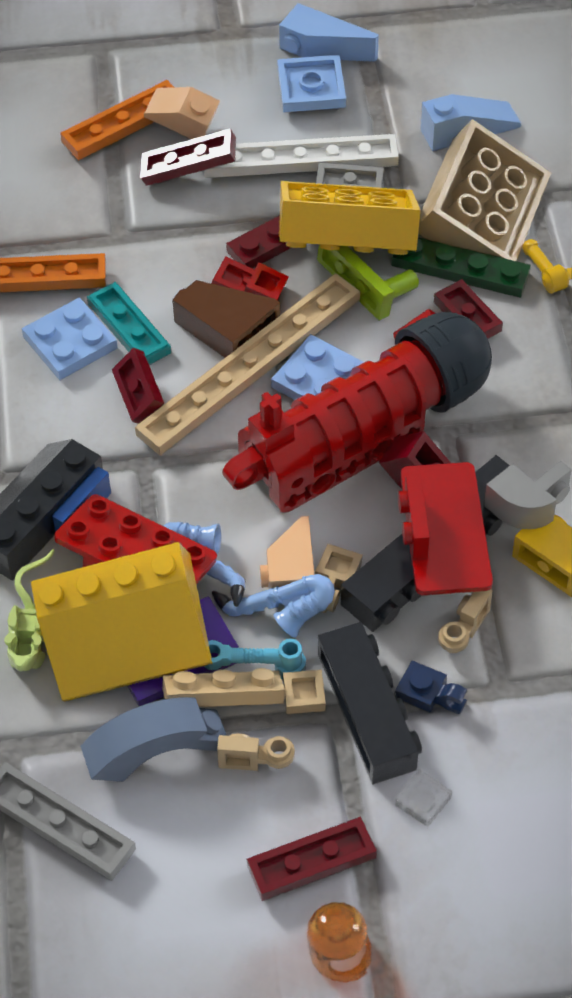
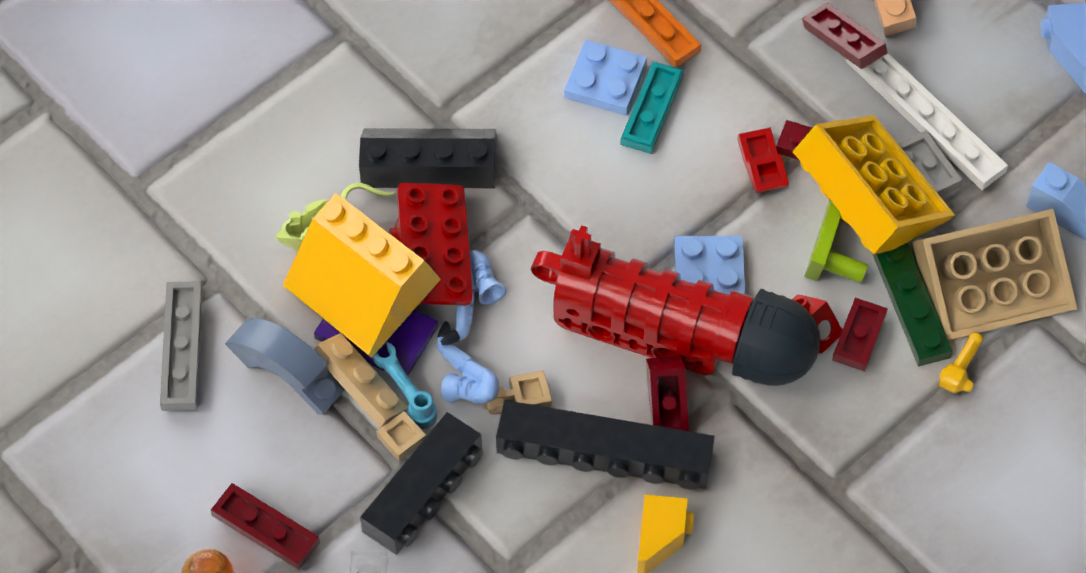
camera: 55 degrees right, 5 degrees up
(95, 483) = (473, 182): blue tile -> none
(137, 385) = (591, 151): dark red plate -> none
(222, 315) = (707, 168): reddish brown slope -> none
(244, 752) = (319, 427): tan plate -> none
(246, 364) = (680, 211): tan plate -> none
(289, 556) = (511, 353): light nougat slope -> none
(311, 83) = (1015, 71): light blue plate -> none
(426, 687) = (469, 518): dark blue plate -> none
(444, 528) = (605, 435): red bracket -> none
(472, 613) = (555, 510): tan plate -> none
(527, 502) = (674, 482): light grey brick -> none

